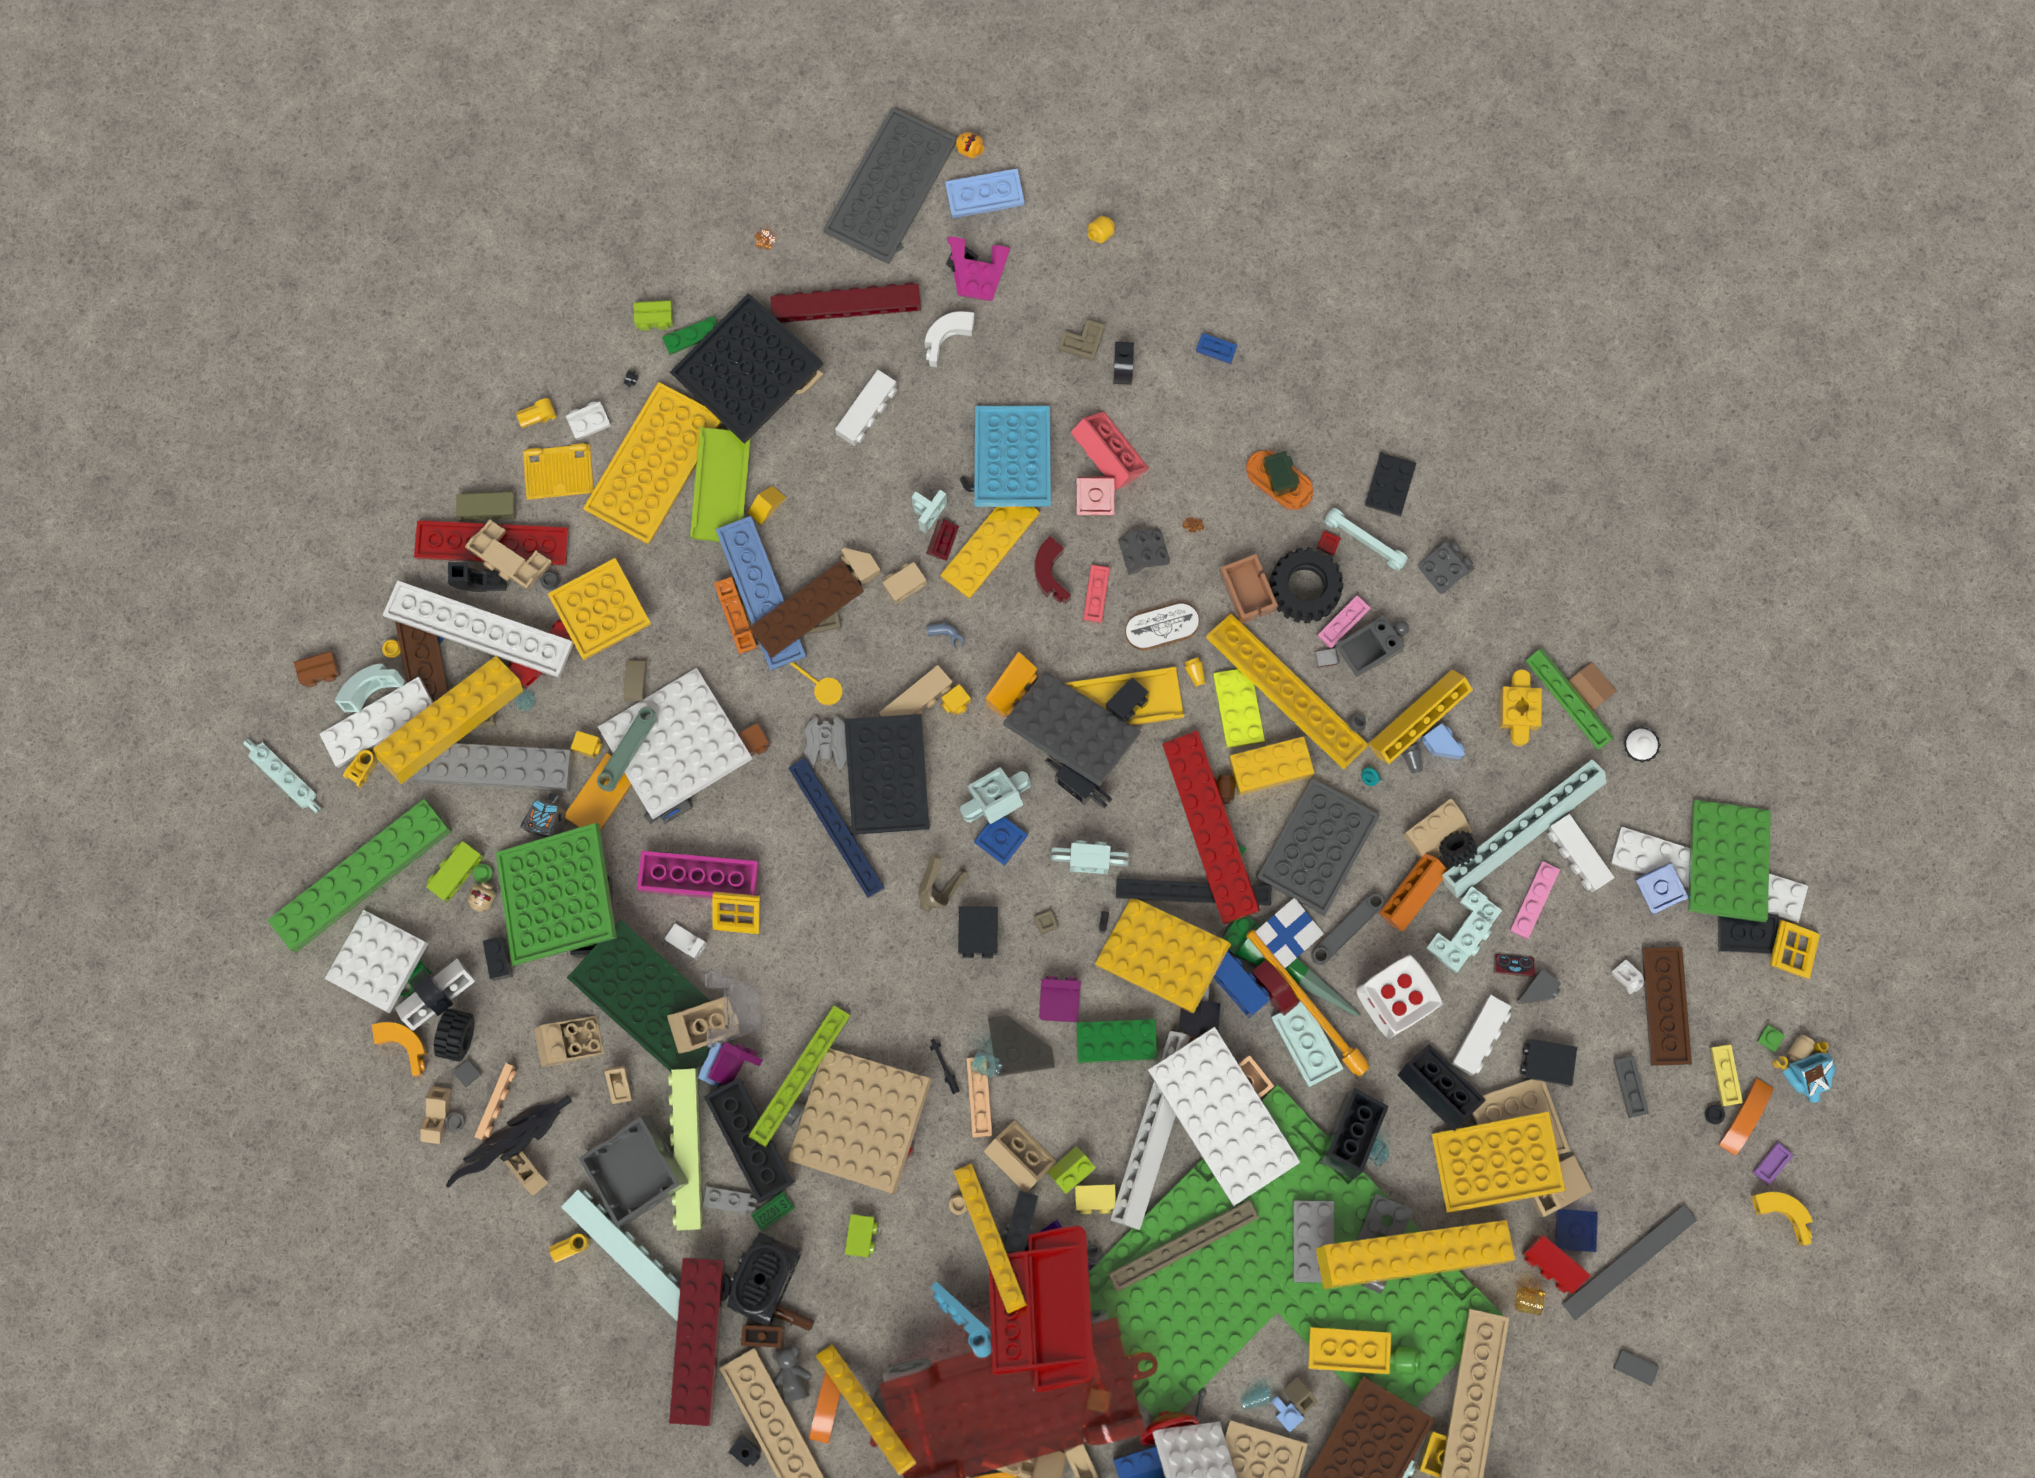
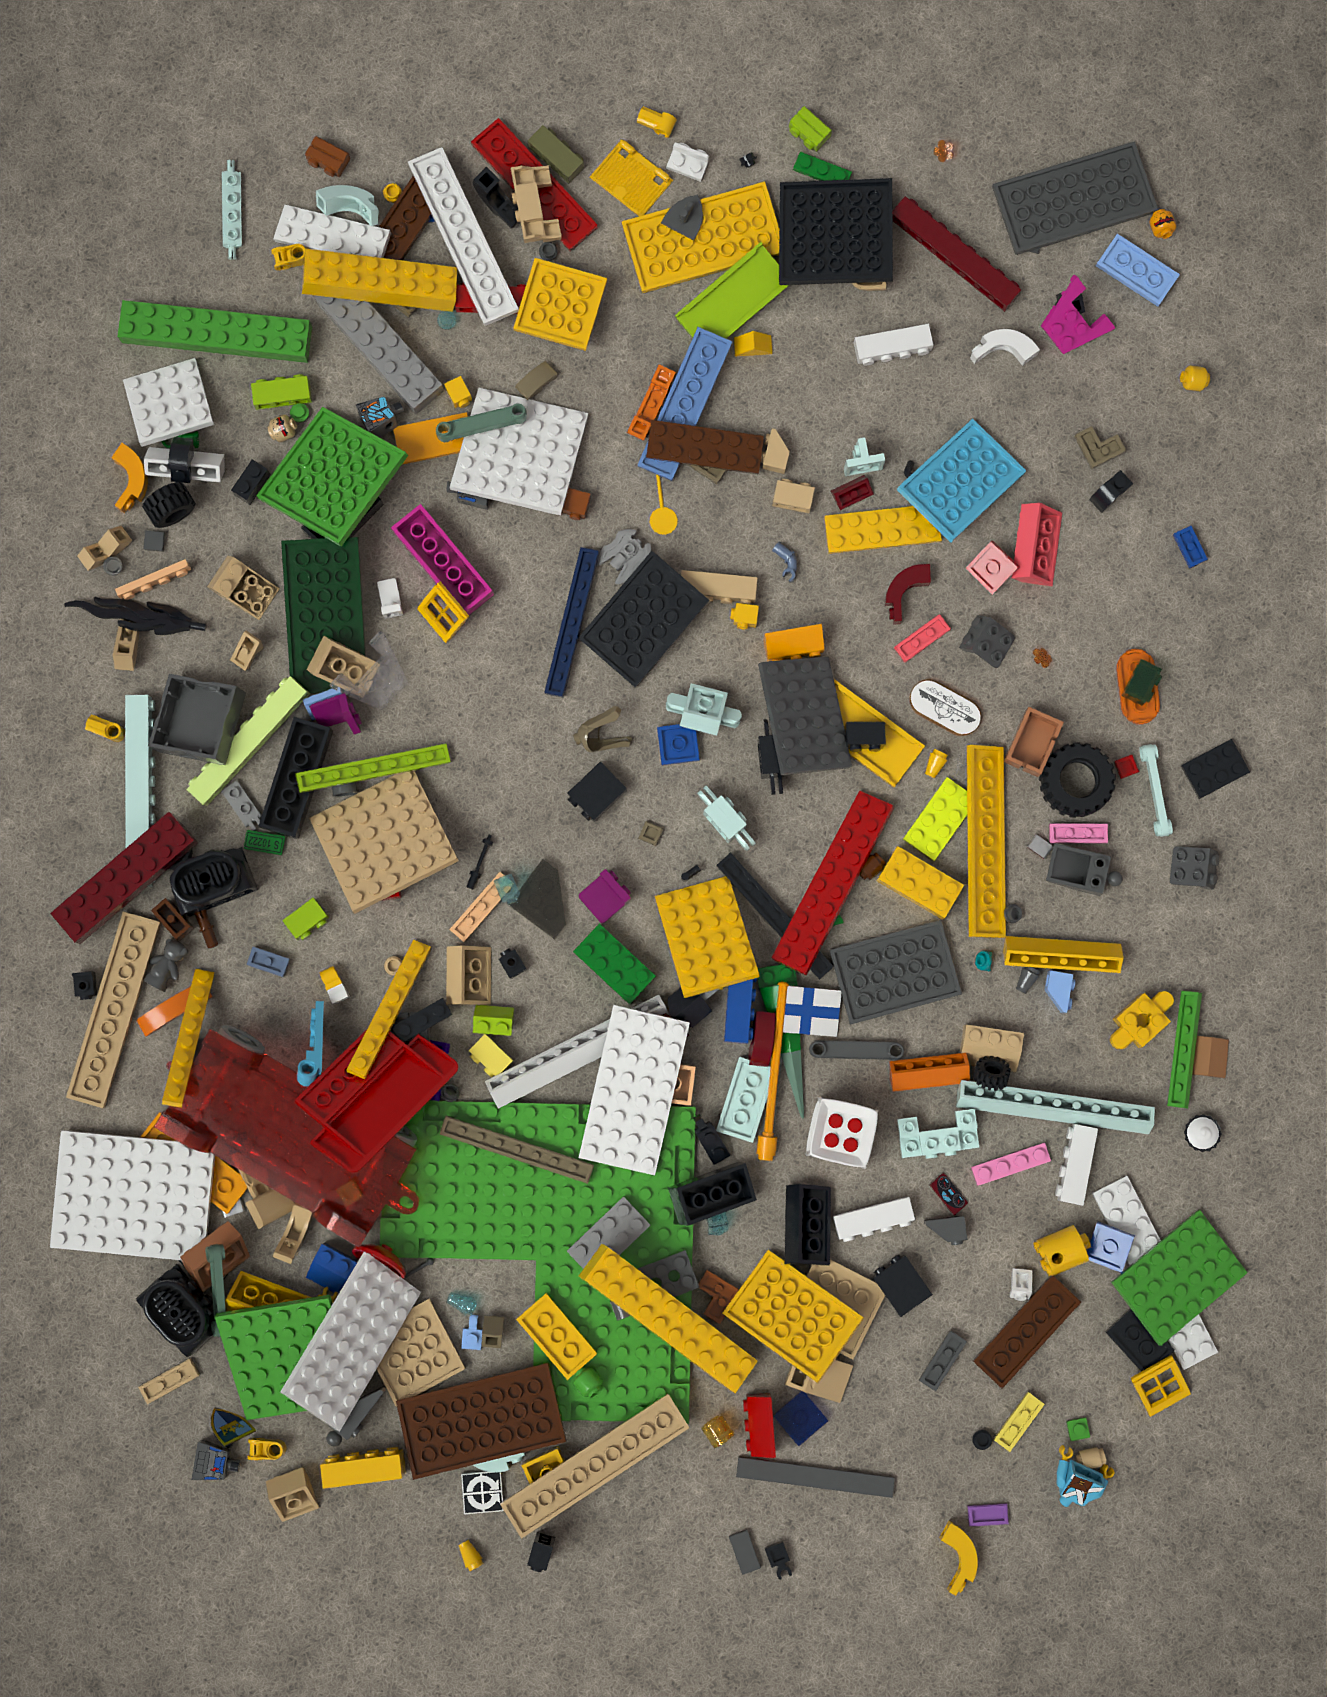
camera: 45 degrees right, 5 degrees up
(626, 461) = (685, 217): none -> dark grey shield
(864, 1295) = (268, 961): none -> sand blue plate
(929, 1263) = (334, 985): none -> leg
(1050, 1114) = (517, 968): none -> black brick
(1312, 1097) = (710, 1140): none -> black hinge
(1430, 1198) = (722, 1295): none -> dark orange plate
(1632, 923) = (1062, 1250): none -> yellow cylinder
(1663, 1346) = (778, 1557): none -> black plate
(1747, 1117) = (1003, 1464): orange slope -> none

